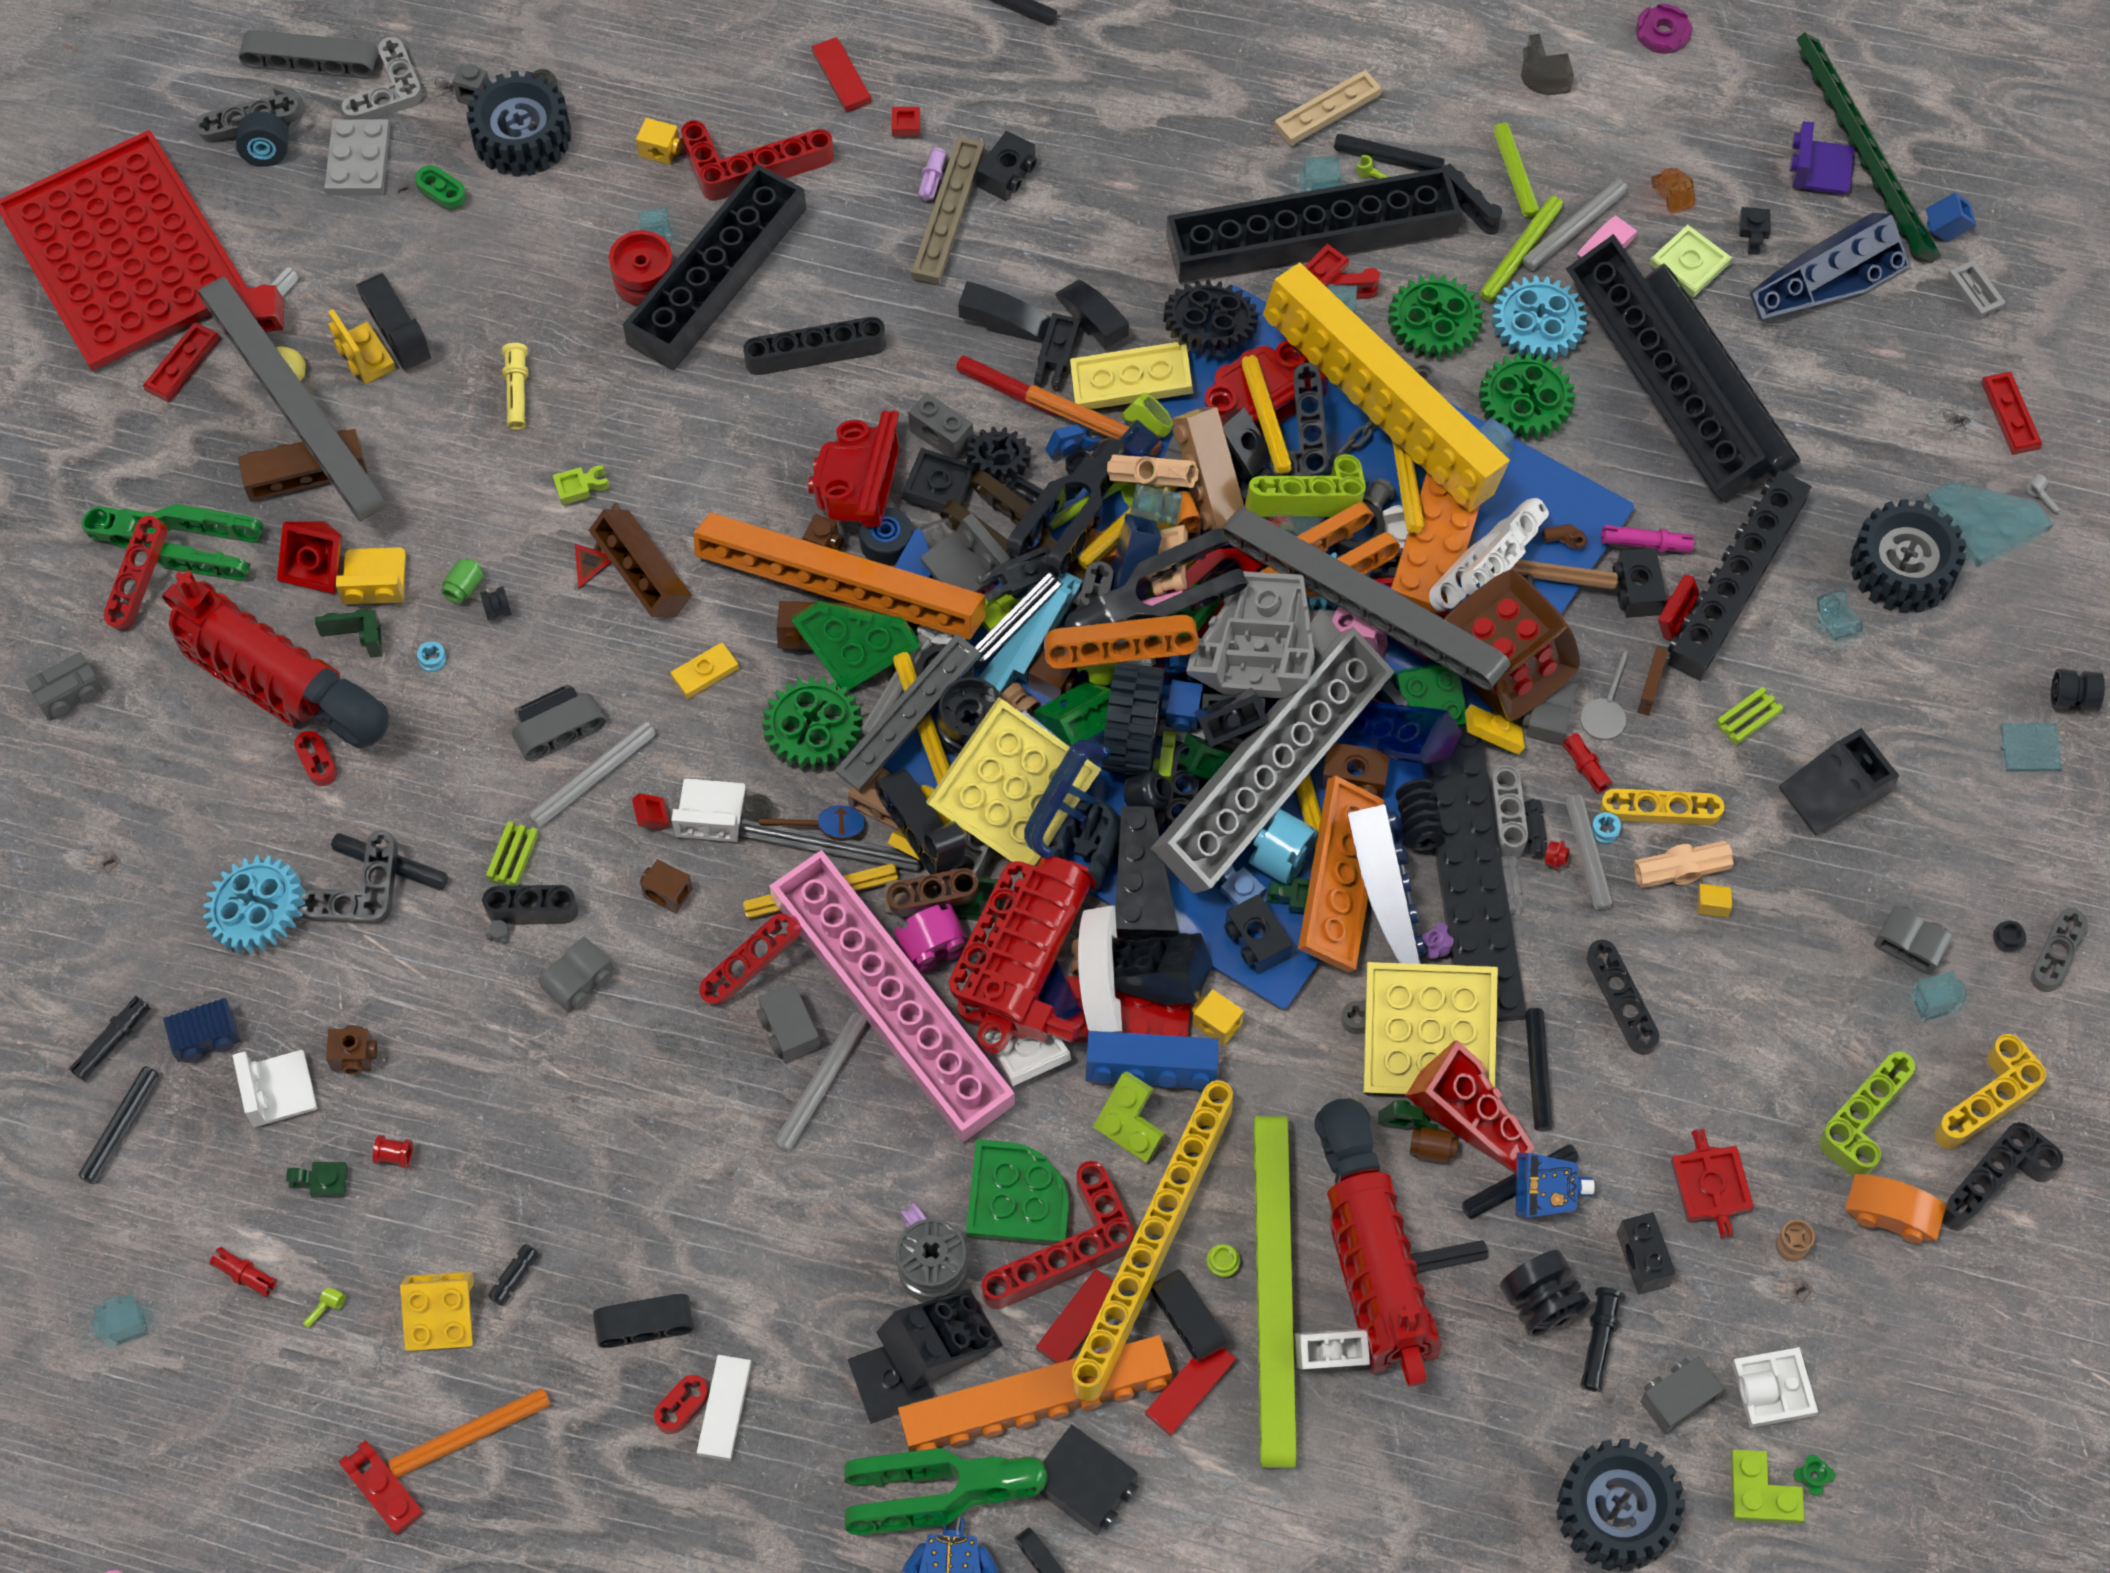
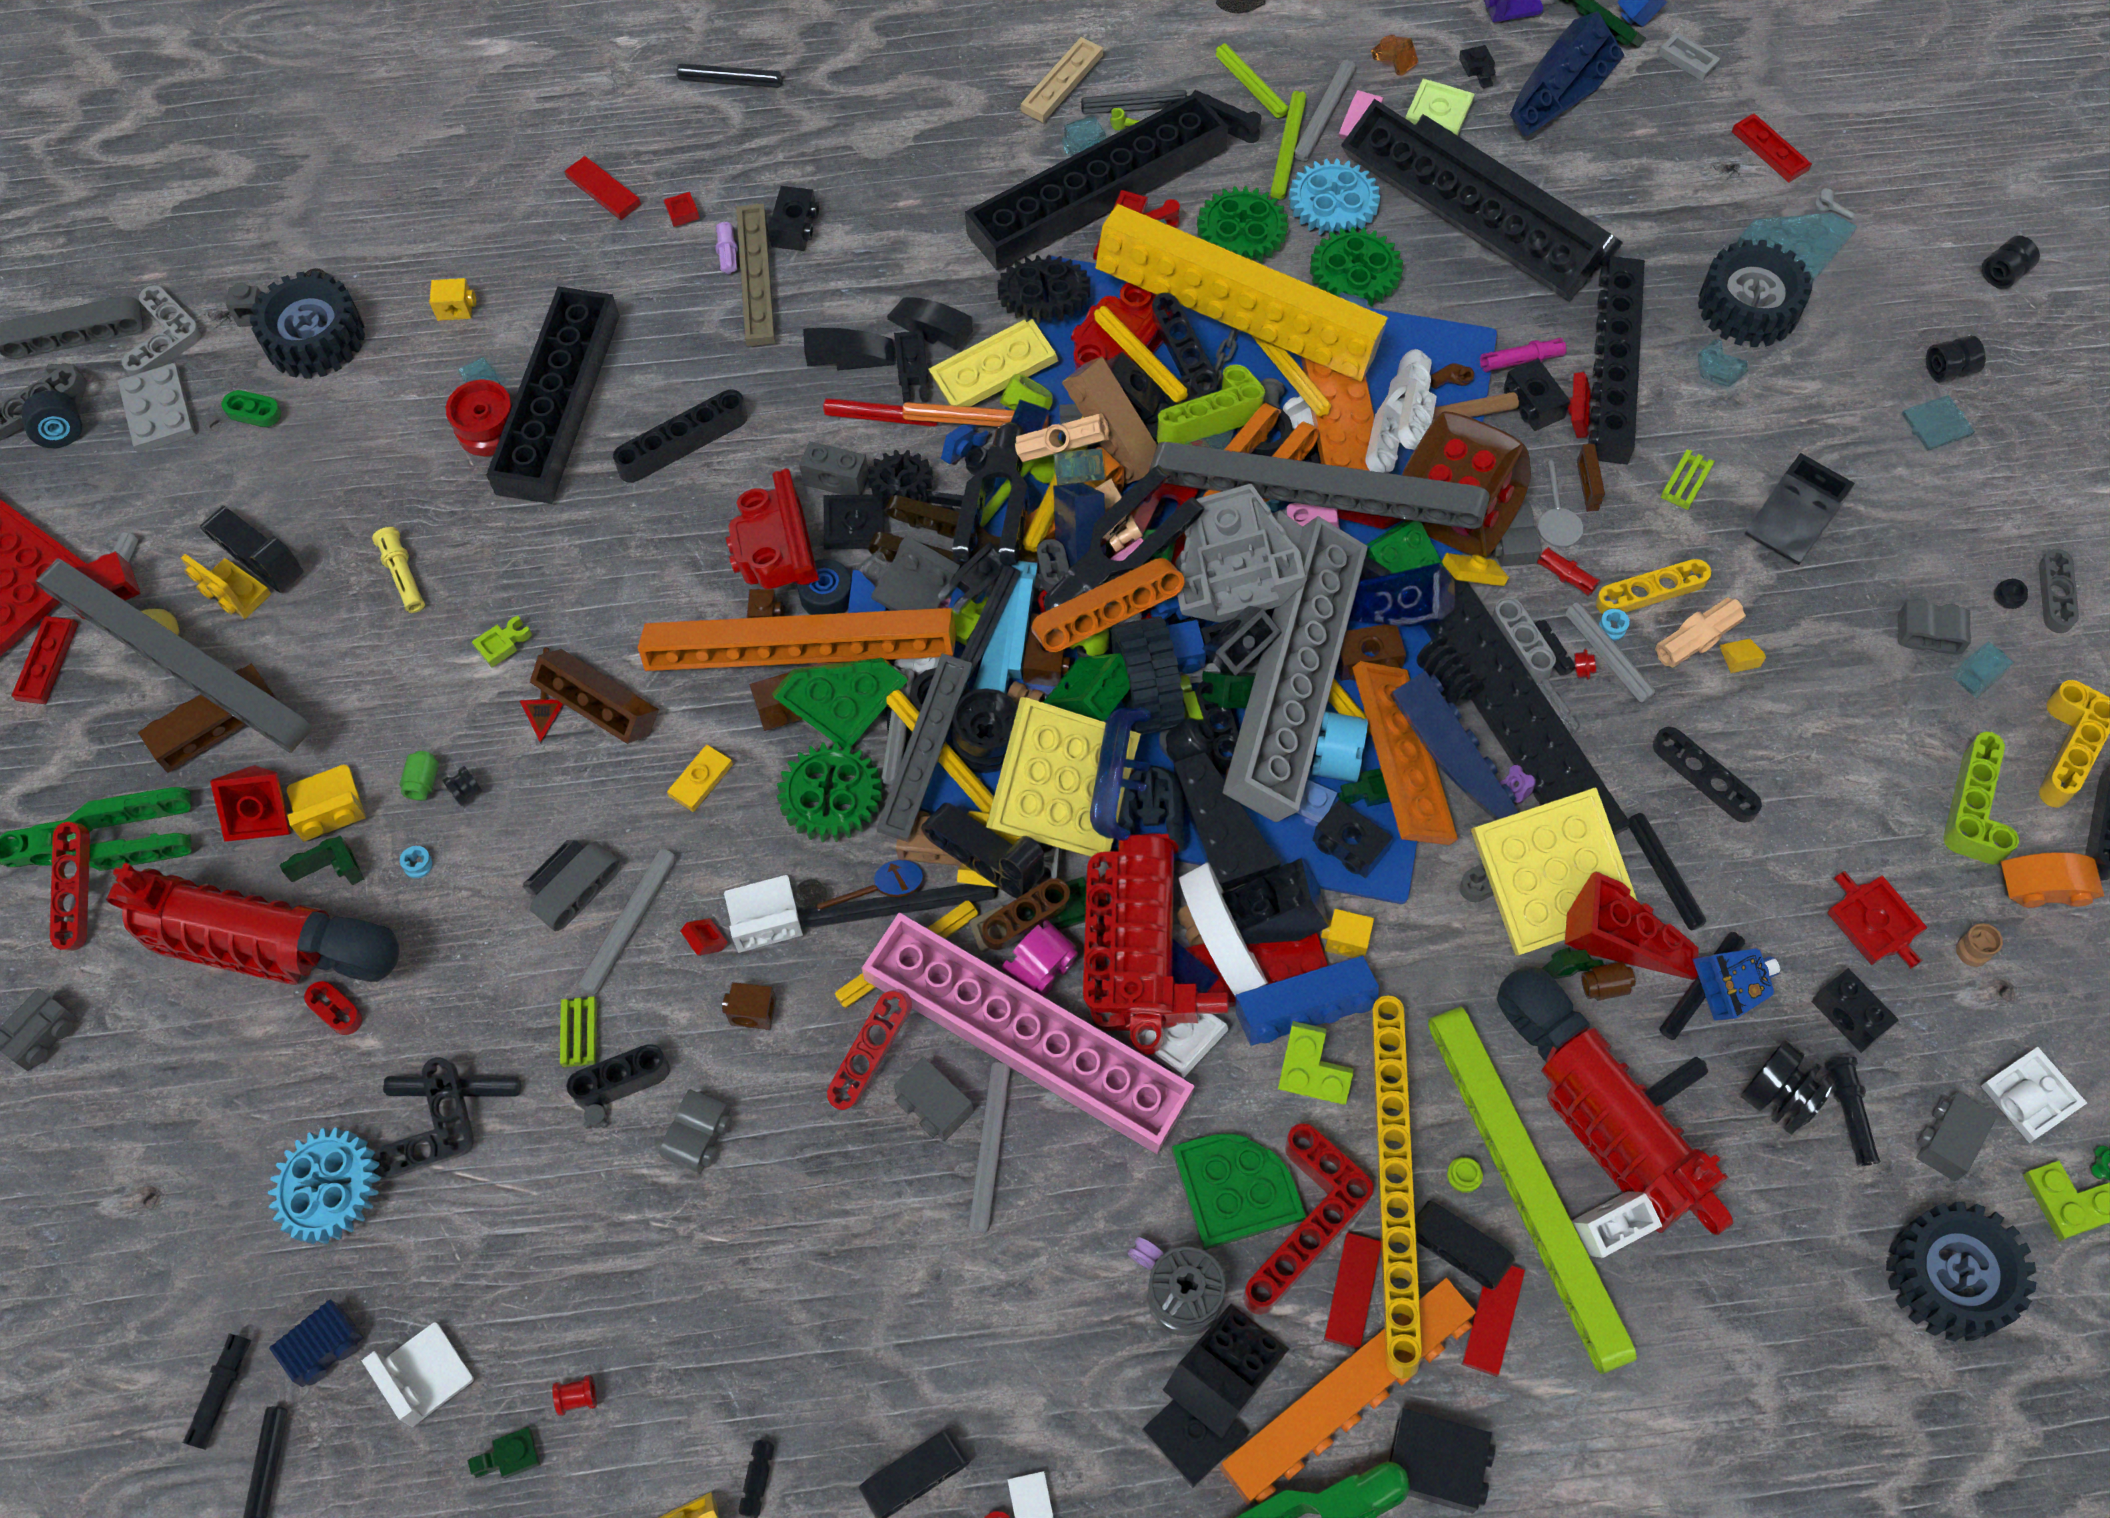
camera: 20 degrees left, 0 degrees up
(351, 1049) = (488, 1302): reddish brown brick -> none
(785, 157) = (527, 312): red beam -> none

